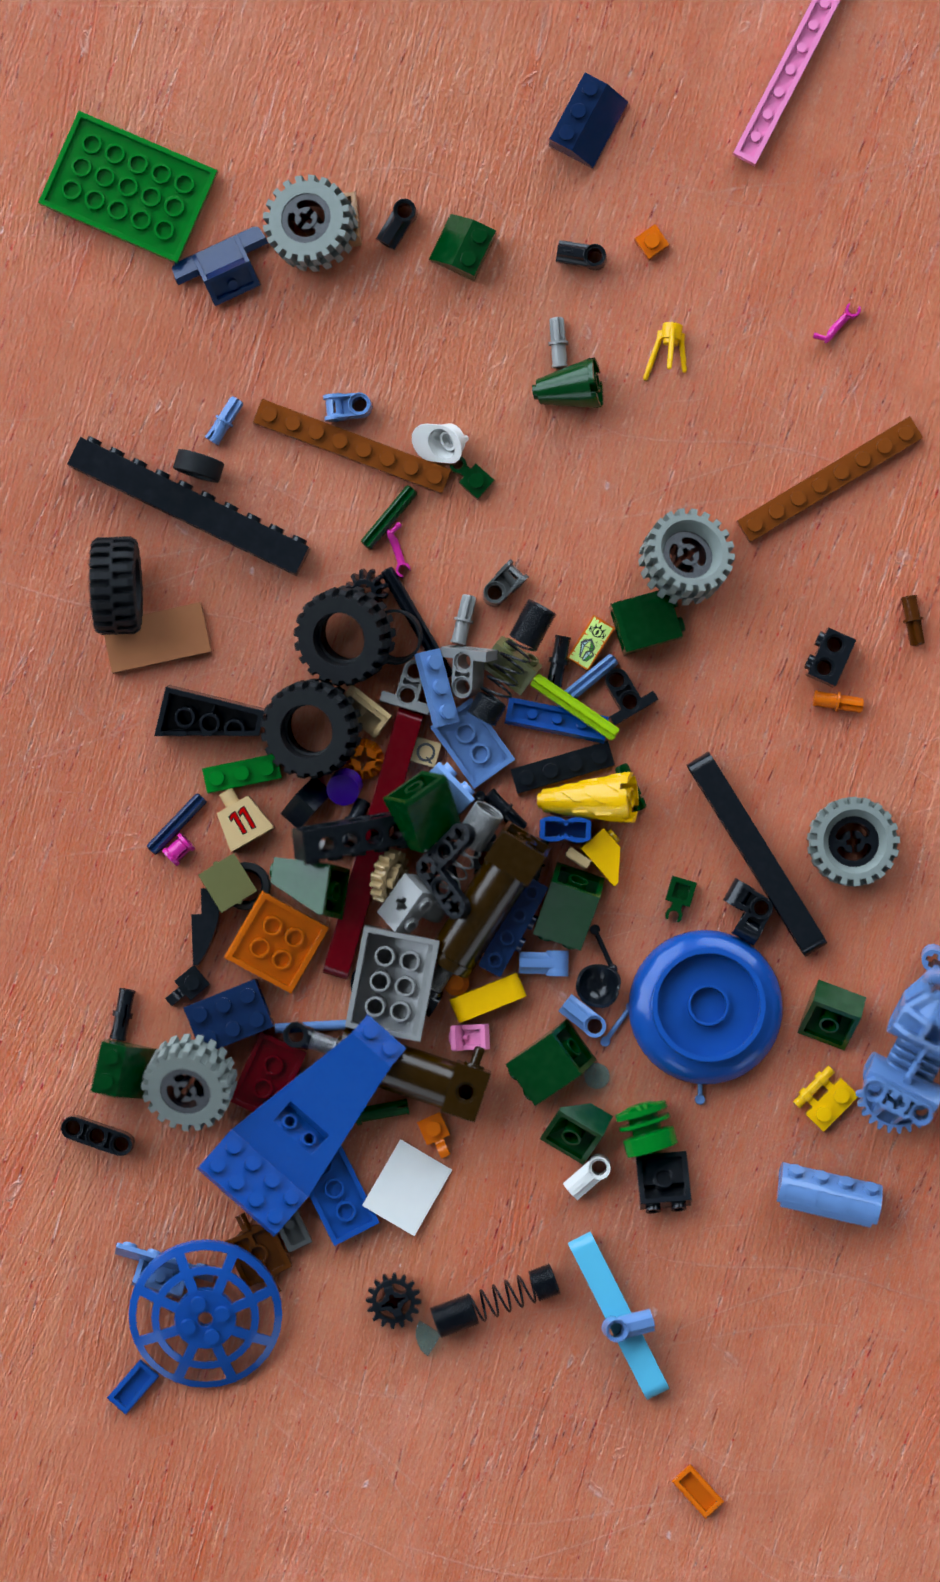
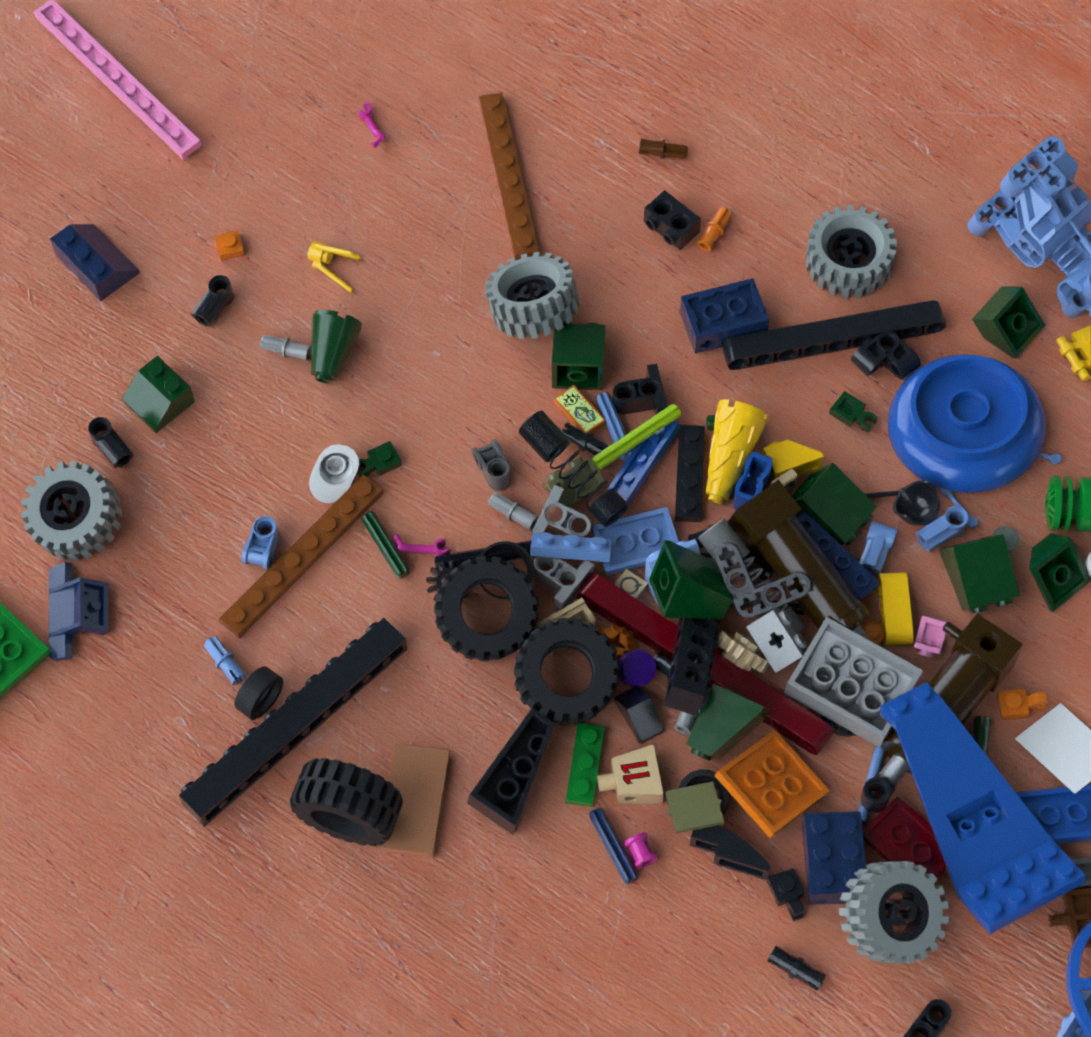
camera: 65 degrees left, 25 degrees down
(121, 1069) = (854, 985): dark green slope -> none
(736, 744) = (722, 314): none -> dark blue piece

